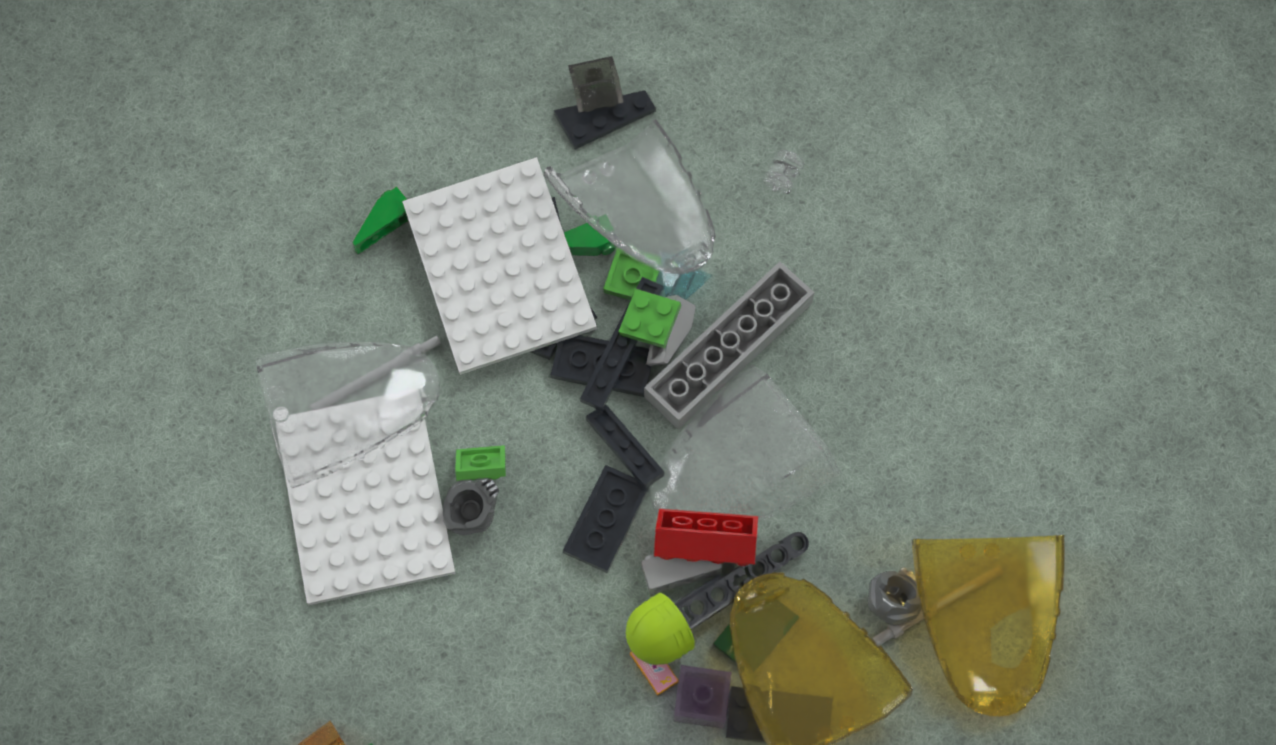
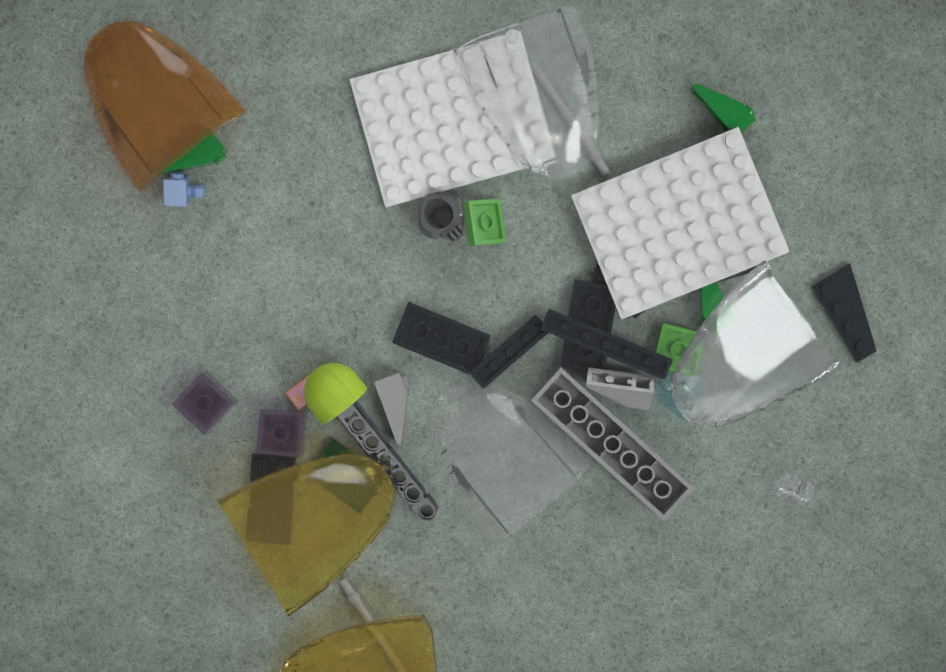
camera: 80 degrees right, 20 degrees up
(595, 84) = (876, 303): clear smoke brick -> none
(650, 318) = (628, 369): bright green plate -> none
(706, 536) = (422, 430): red brick -> none
(894, 596) = (380, 597): dark grey helmet -> none

